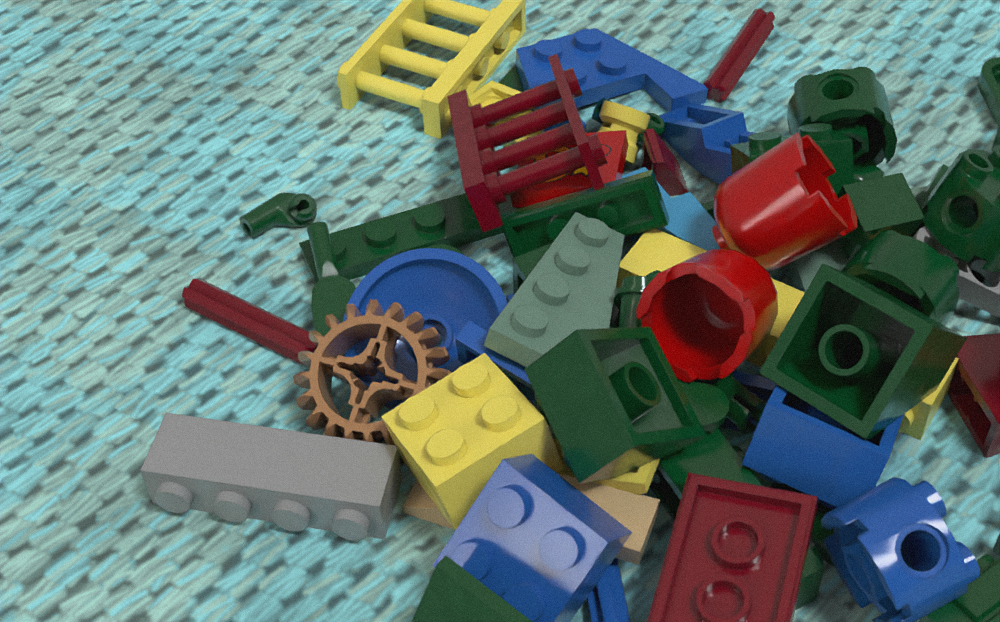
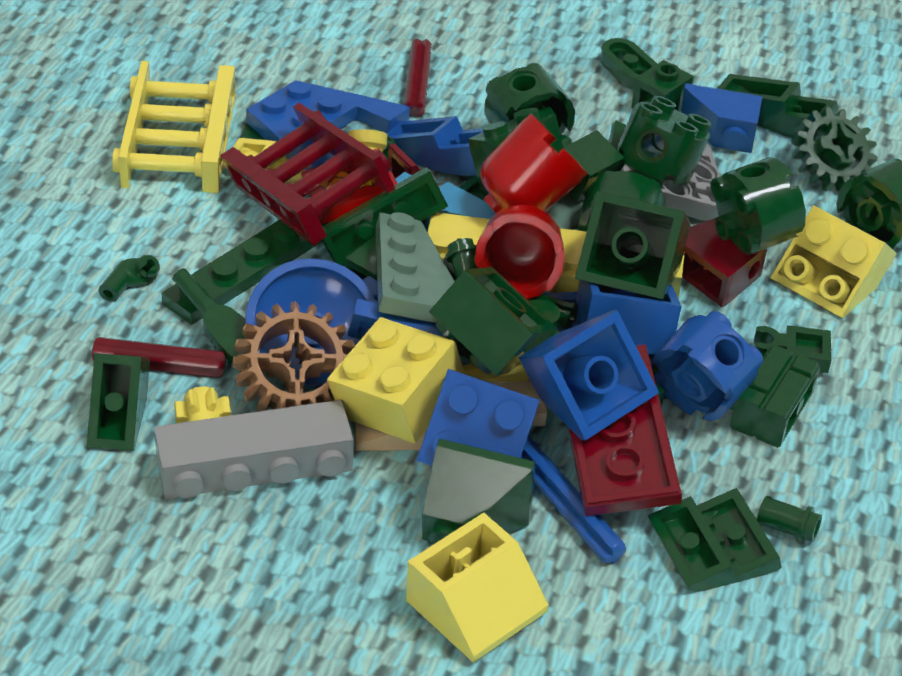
camera: 30 degrees left, 5 degrees down
(166, 360) = (117, 400): none -> dark green slope
(244, 401) = (201, 404): none -> light yellow gear
(709, 523) = (590, 374): none -> blue slope

